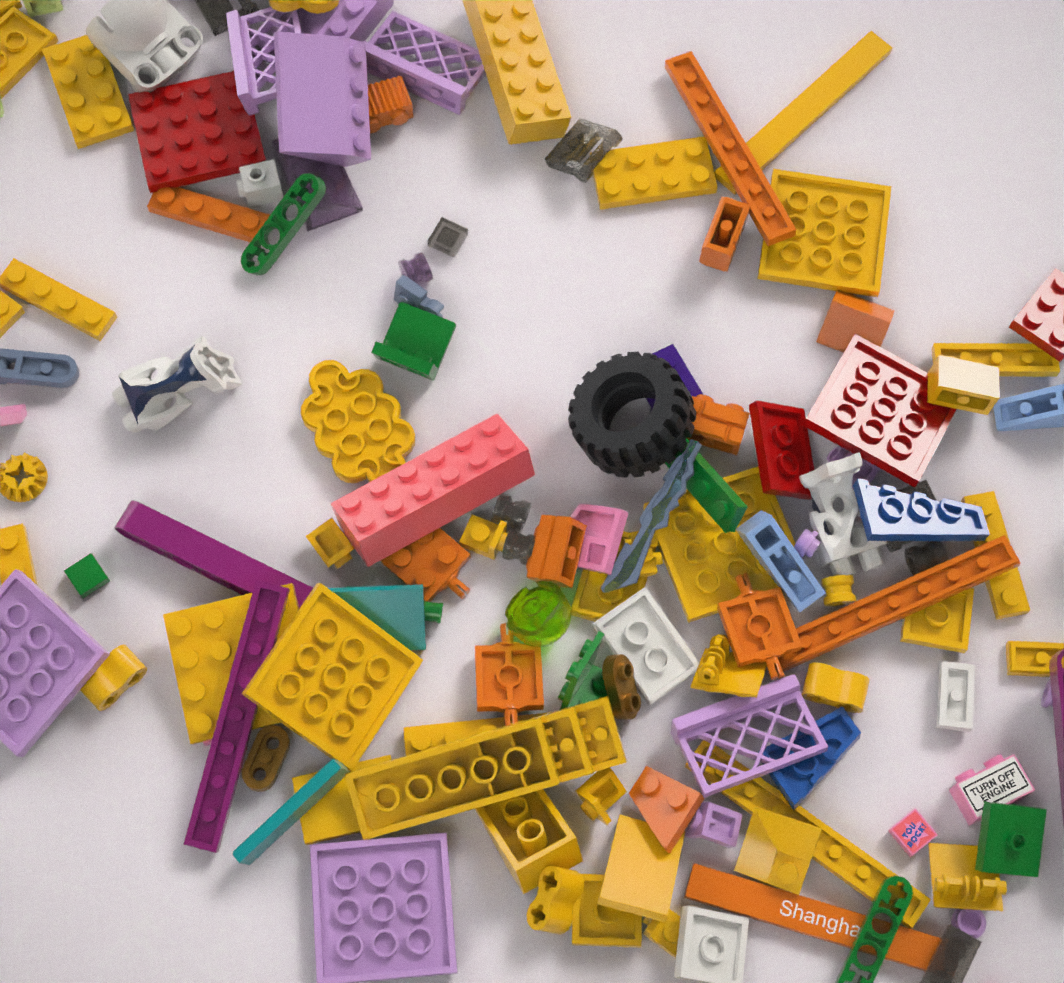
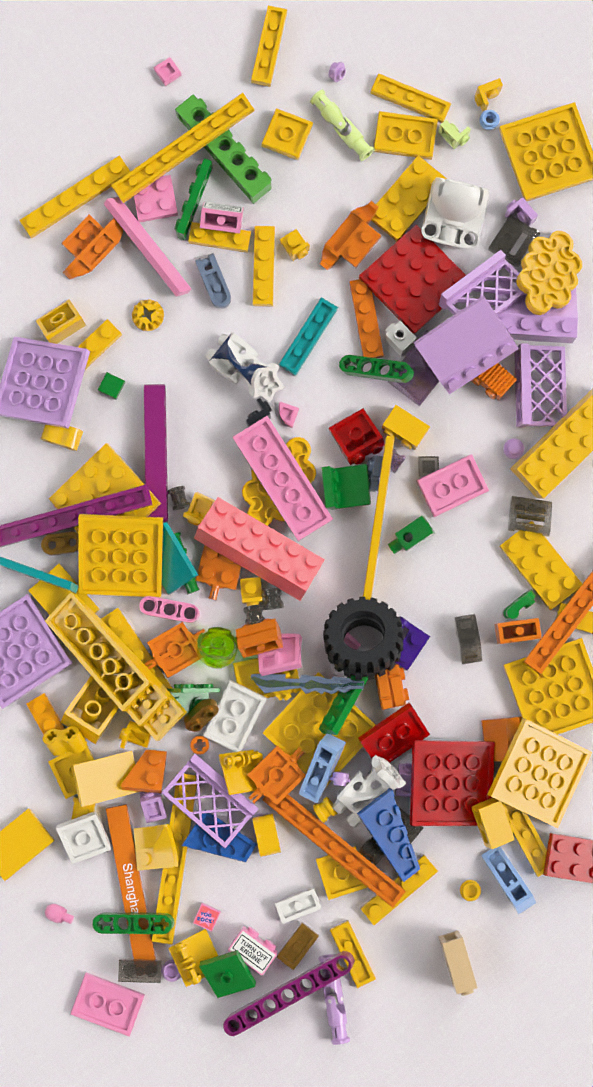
camera: 65 degrees right, 15 degrees up
(56, 247) = (295, 245): none -> yellow bracket
(93, 172) = (352, 239): none -> orange plate
(186, 291) = (308, 336): none -> teal tile
(252, 402) = (255, 416): none -> black bracket
(272, 369) = (288, 413): none -> bright pink tile
(299, 564) = (175, 492): none -> clear smoke bush
(355, 411) = (282, 478): none -> bright pink plate
(357, 297) = (357, 437): none -> red plate
(380, 235) = (405, 427): none -> yellow brick
(450, 640) = (159, 610): none -> bright pink beam
(479, 318) = (378, 518): none -> yellow tile
(485, 129) = (513, 448): none -> lavender plate
(490, 221) = (452, 485): none -> bright pink tile
(499, 915) = (45, 714): none -> light orange plate
(527, 284) = (418, 528): none -> green torso
(651, 718) = (195, 740): none -> orange bush
(691, 225) = (524, 600): none -> green plate
(696, 295) = (468, 639): none -> clear smoke slope
(924, 297) = (539, 773): none -> yellow plate
(1013, 725) = (297, 946): none -> pearl gold plate
(1038, 465) = (470, 890): none -> yellow plate

